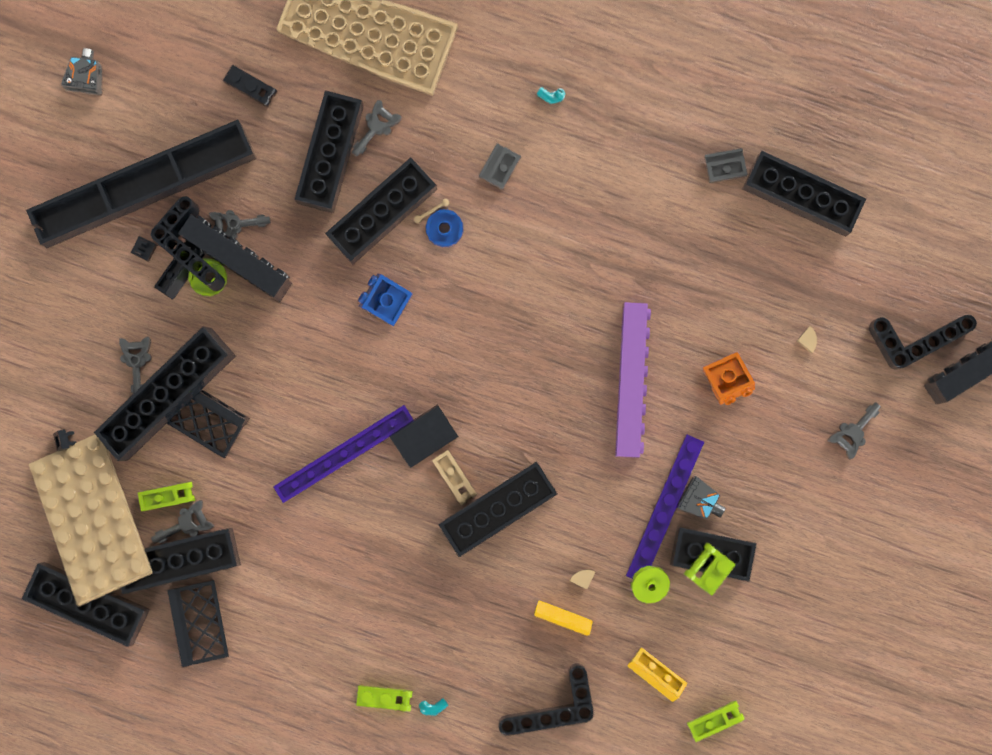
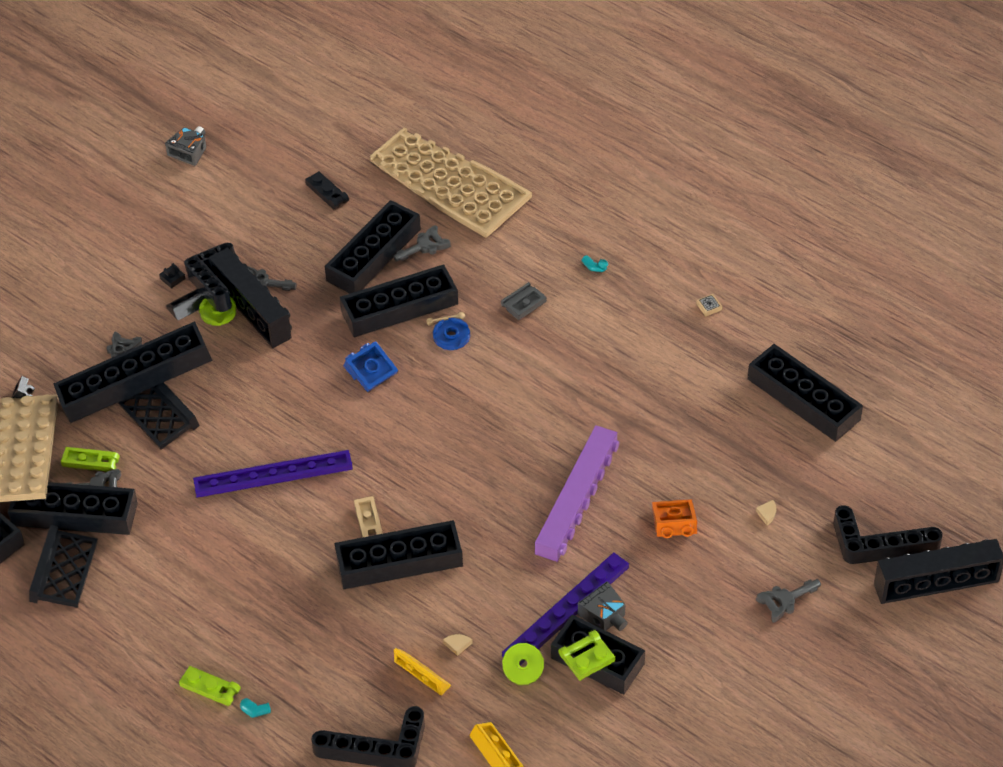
camera: 20 degrees right, 35 degrees down
(141, 184) = (195, 226): black piece -> none
(423, 436) = (355, 479): black tile -> none
(677, 109) = (709, 305): none -> tile
(725, 165) = (736, 354): dark grey plate -> none

